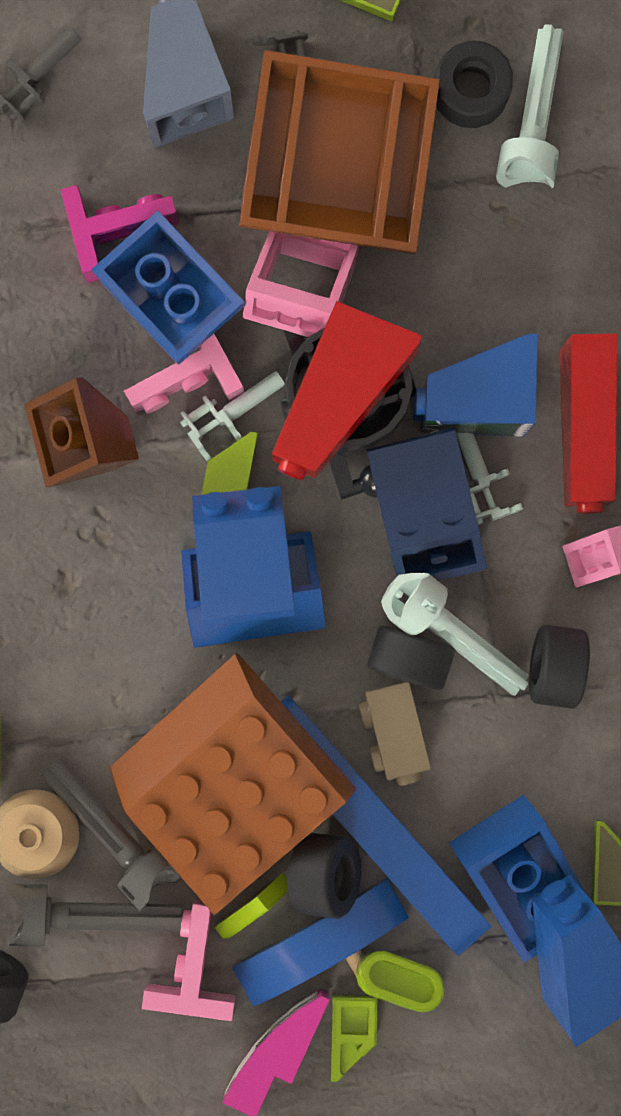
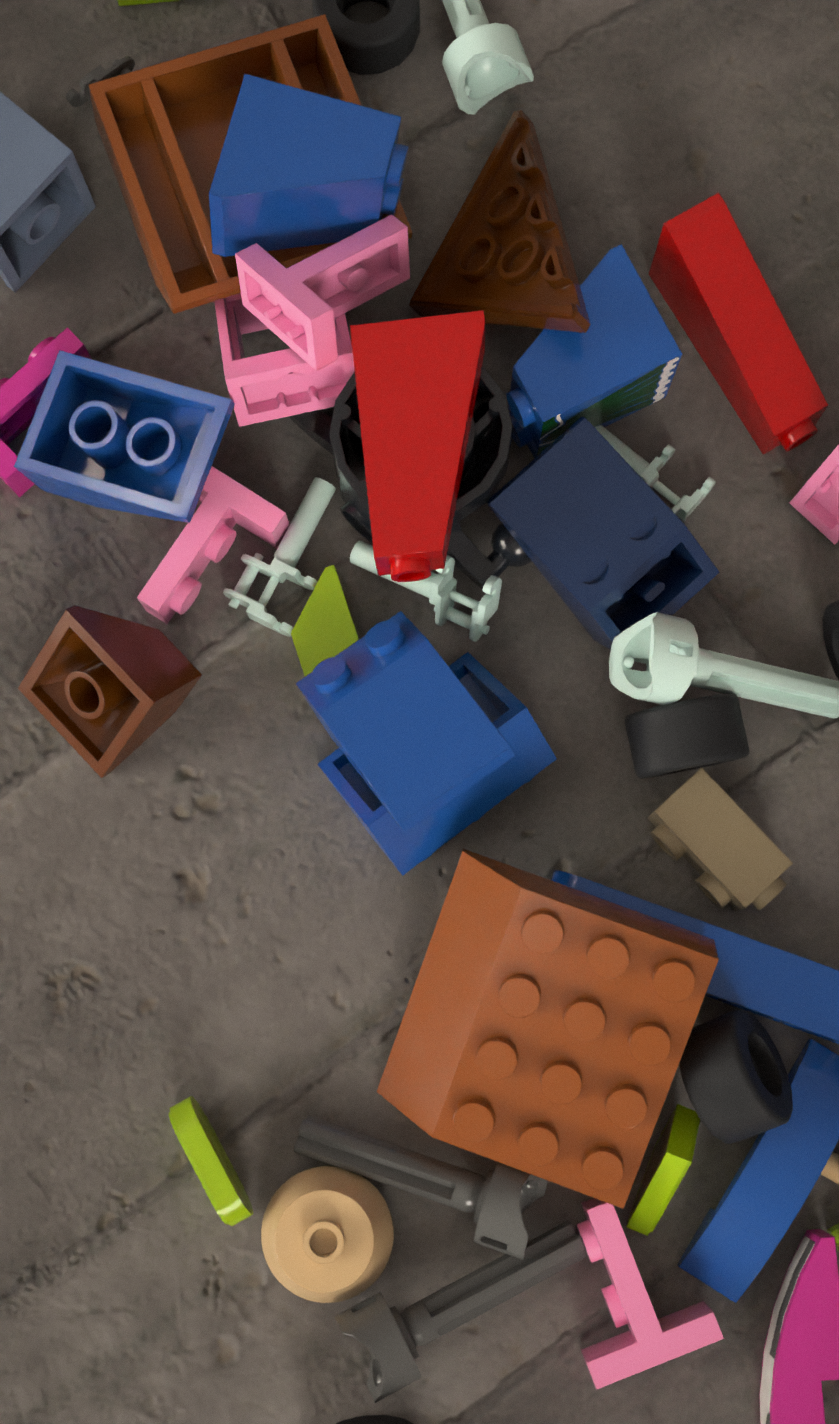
camera: 25 degrees left, 5 degrees down
(313, 489) = (442, 593): none -> light aqua piece
(338, 262) = (309, 295): none -> bright pink bracket
(361, 184) = (302, 169): none -> blue slope
(471, 289) = (507, 246): none -> reddish brown tile

